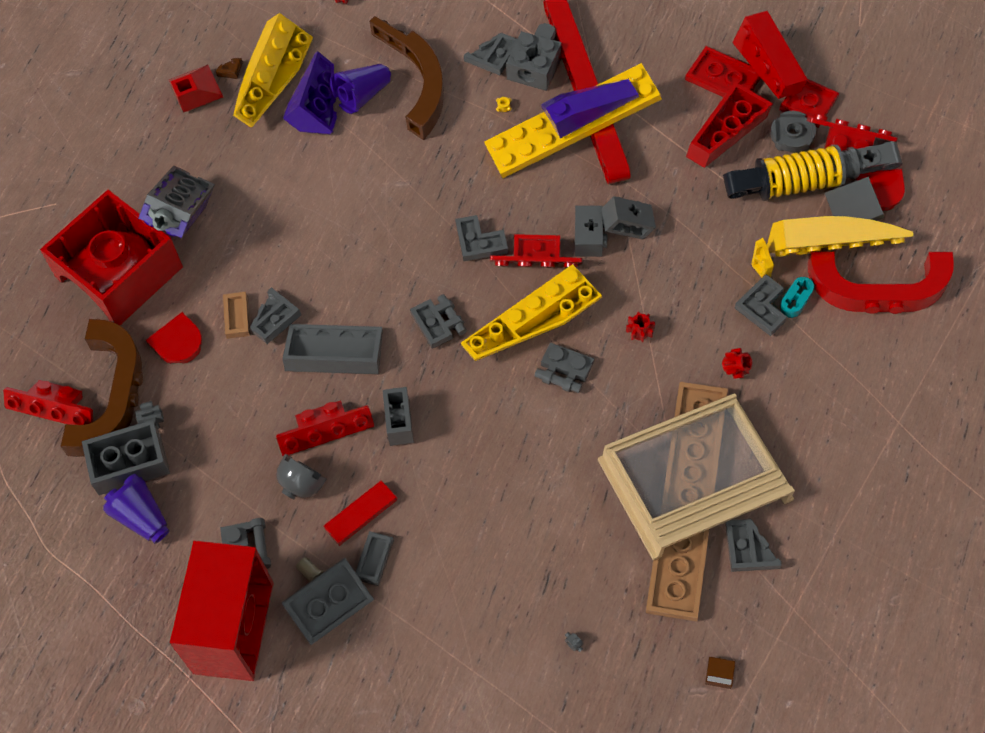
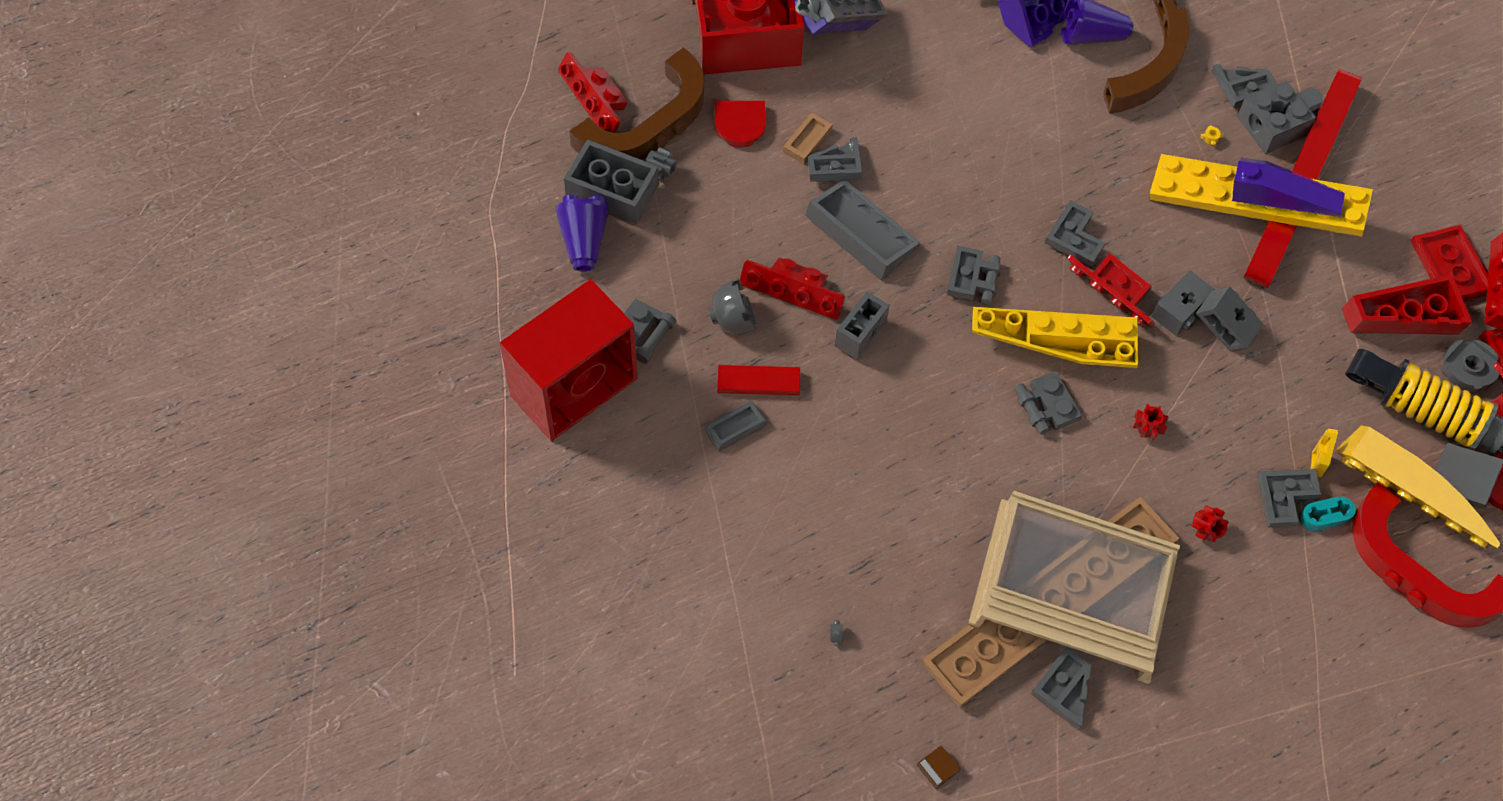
camera: 35 degrees right, 0 degrees up
(308, 569) = (673, 402): dark tan pin -> none
(327, 601) = (664, 426): dark grey tile -> none

